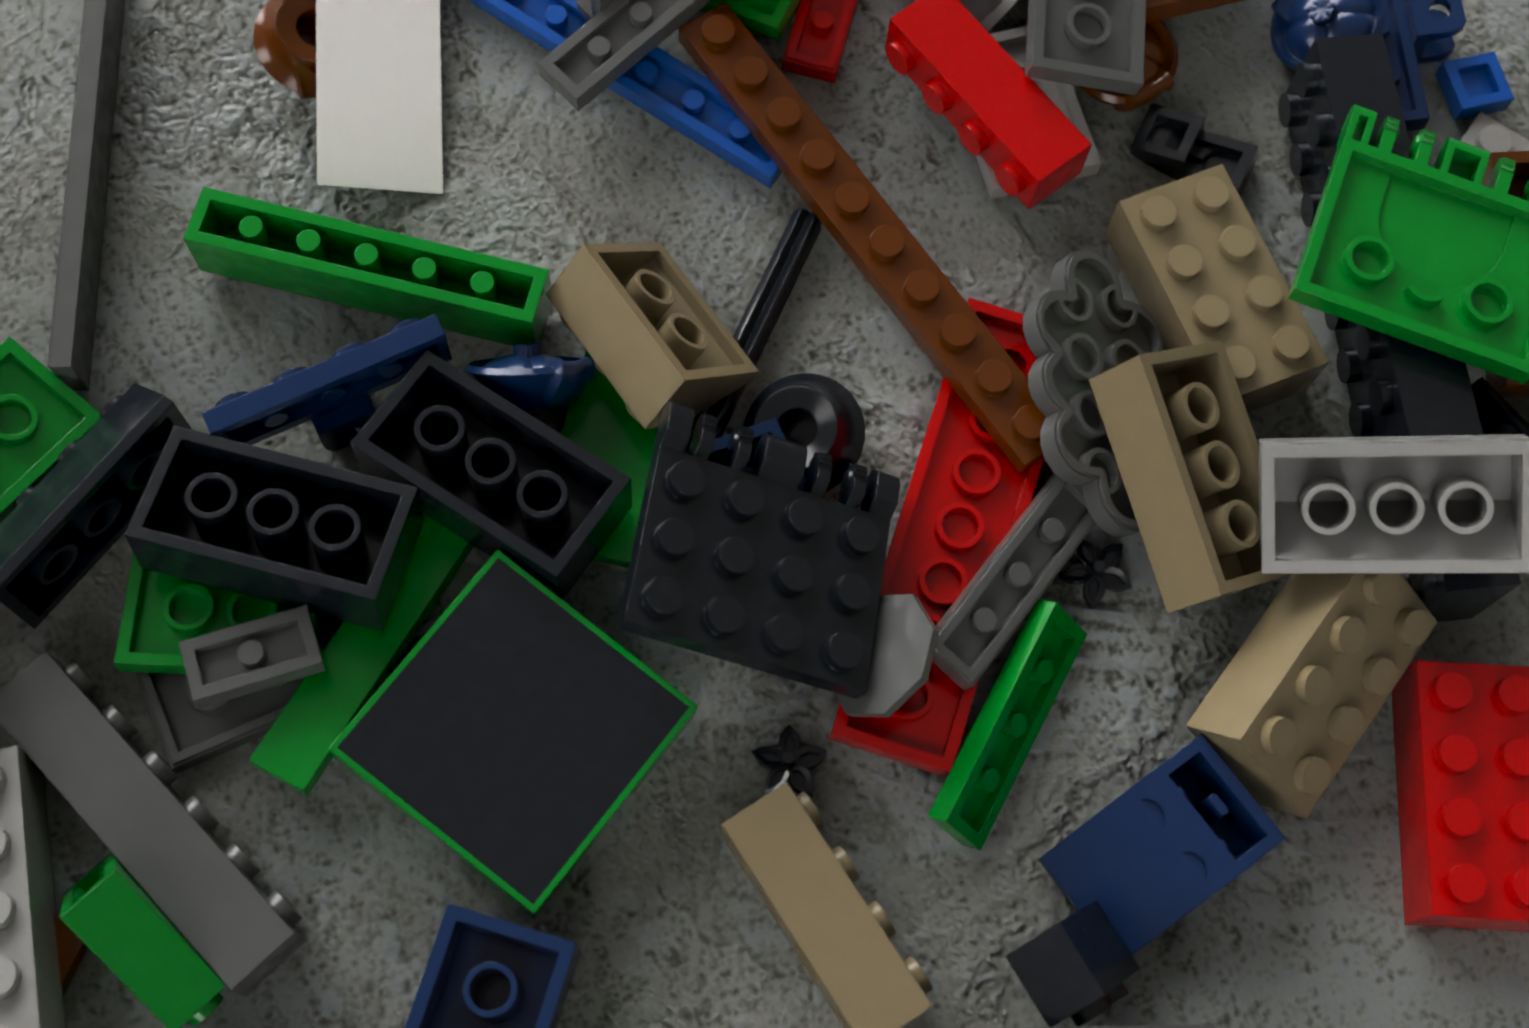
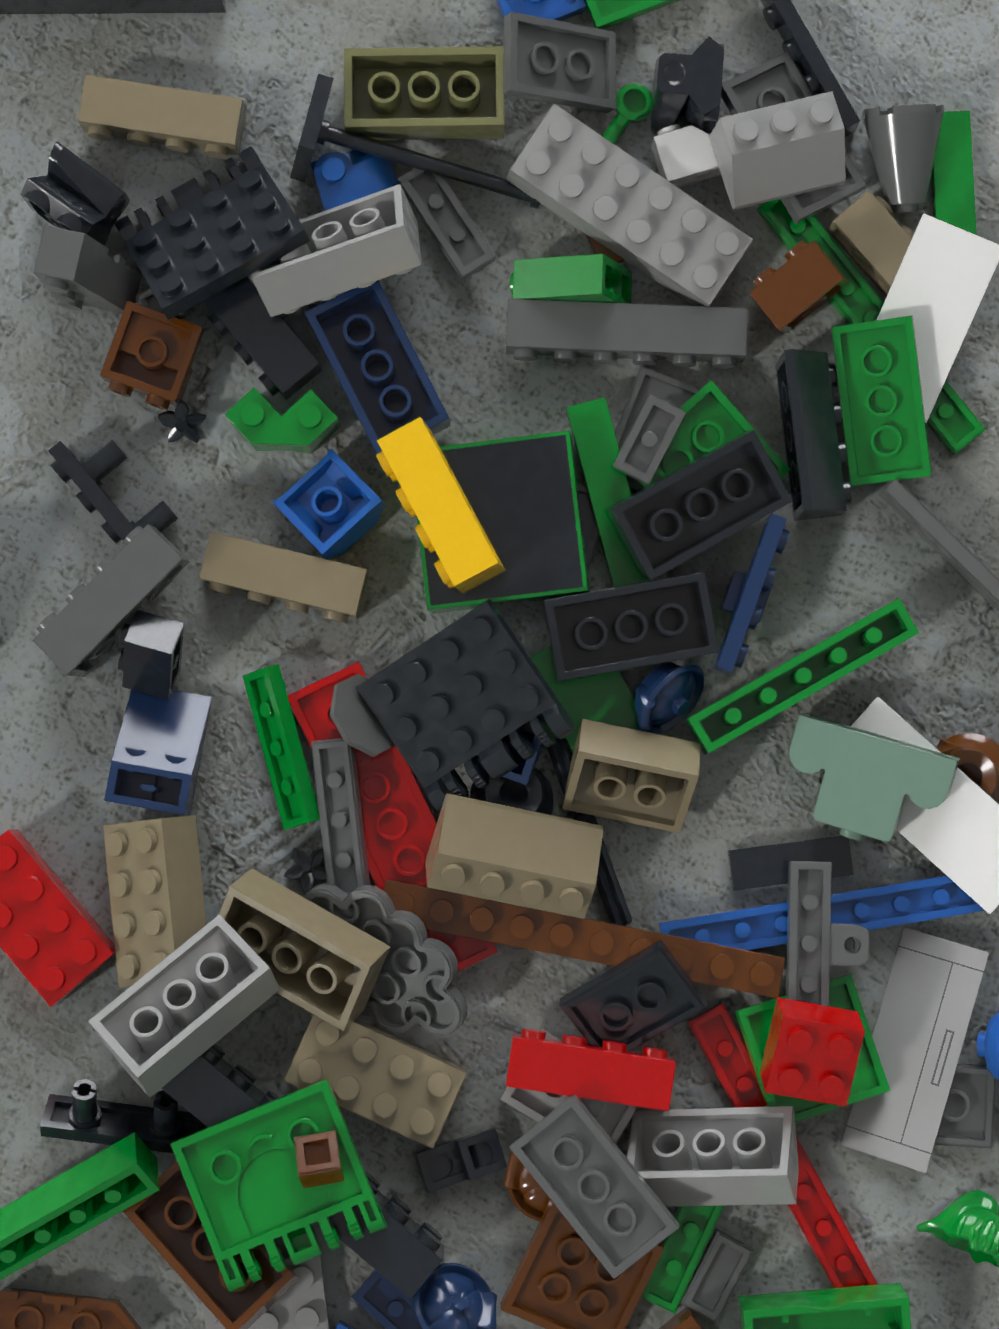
camera: 140 degrees right, 15 degrees up
(410, 113) = (868, 776): none -> sand green brick
(563, 787) = (440, 505): none -> yellow brick
(589, 135) = (770, 863): none -> black tile
(690, 948) = (331, 506): none -> blue slope
(790, 762) = (367, 633): black plant -> none
(864, 358) = (514, 856): none -> dark tan slope
(872, 124) = (634, 999): none -> black tile
(1375, 217) = (318, 1159): none -> reddish brown slope

